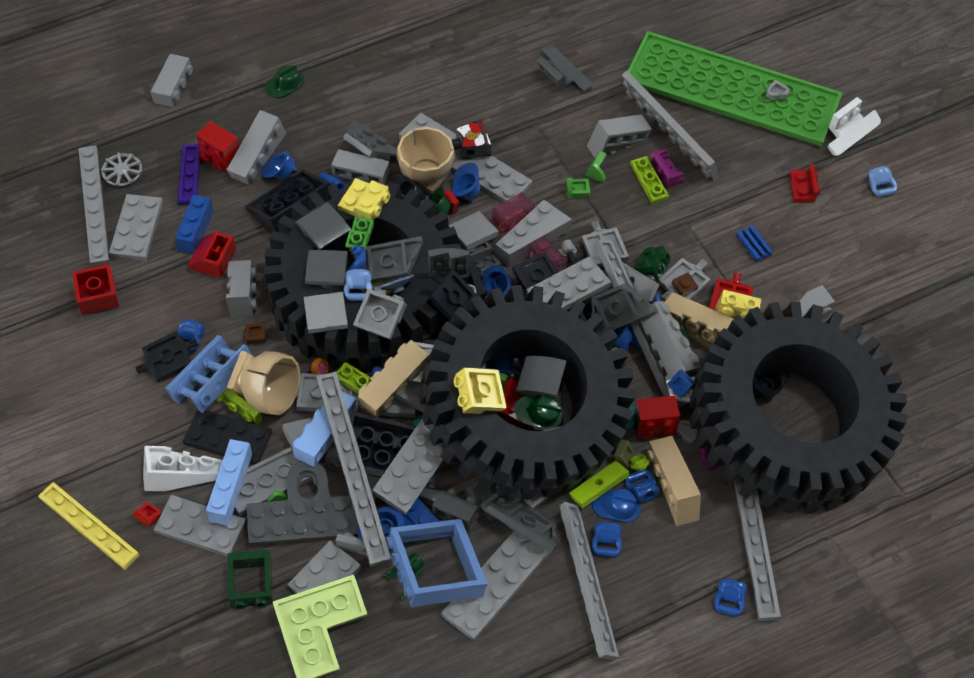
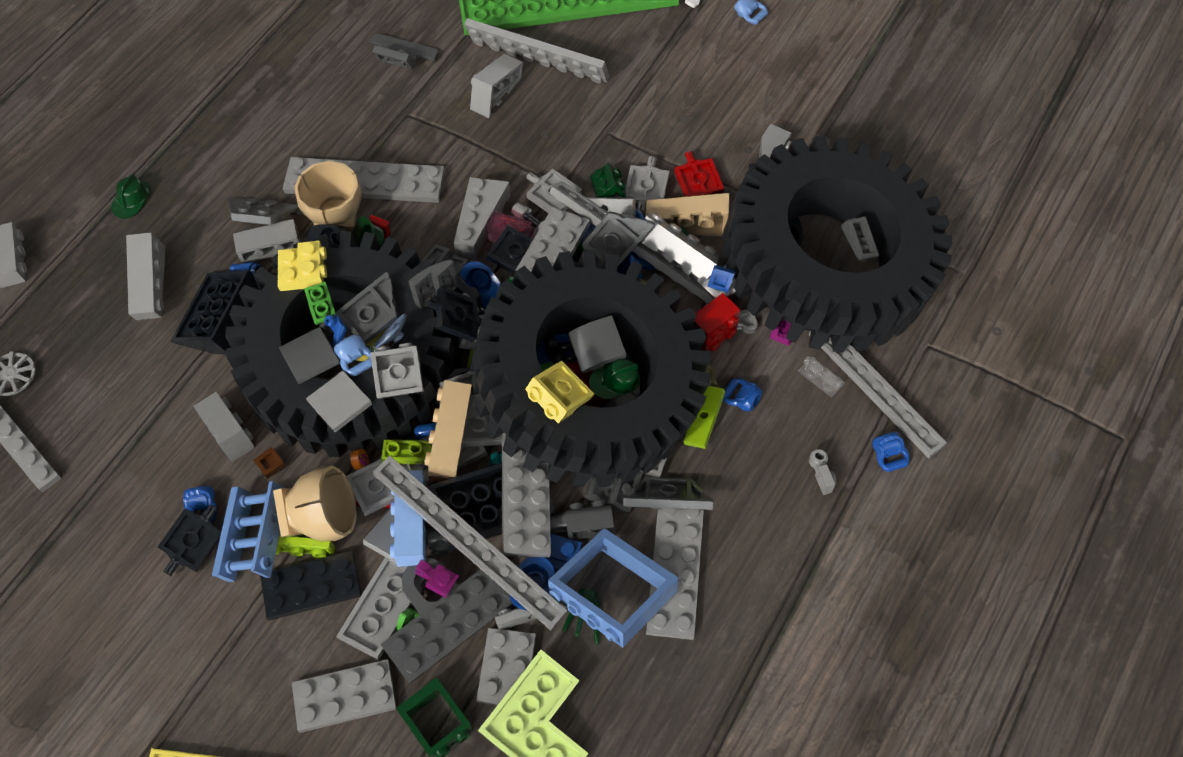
camera: 30 degrees left, 5 degrees up
(95, 289) = (64, 514): red brick -> none
(136, 227) = (66, 425): light grey plate -> none
(147, 514) = (280, 718): red tile -> none
(173, 470) = (275, 656): white wedge -> none
(189, 173) = (90, 340): dark purple tile -> none
(194, 224) = (129, 388): blue brick -> none
(213, 254) = (170, 407): red slope -> none
(217, 146) = (103, 295): red brick -> none
(229, 482) = (348, 633): light blue brick -> none
(279, 166) = (182, 281): blue piece -> none
(315, 483) = (439, 580): none -> magenta plate
(323, 226) = (276, 315): dark grey slope -> none
(466, 182) = (382, 199): blue piece -> none
(472, 140) = (364, 156): torso -> none
(474, 230) = (423, 239): light grey tile -> none
(511, 212) = (446, 205): clear pink brick -> none
(577, 188) = (489, 151): bright green tile -> none
(588, 581) = (764, 519): light grey plate -> none
(594, 171) = (493, 126): bright green tile -> none
(607, 533) = (743, 459): blue piece -> none
(617, 505) = (733, 427): blue piece -> none
(639, 462) = (725, 375): lime plate -> none
(649, 180) = (550, 110): lime tile -> none
(665, 169) = (558, 94): magenta hinge -> none
(665, 569) = (825, 477): none -> light grey plate
(675, 480) = (770, 371): tan wedge -> none
(684, 284) = (652, 187): reddish brown plate -> none
(717, 508) = (821, 376): none -> clear hinge
(736, 304) = (718, 180): light yellow plate -> none
(756, 241) = (683, 117): blue tile -> none
(804, 185) = (689, 45): red bracket -> none
(824, 400) = (864, 230): none -> dark grey slope

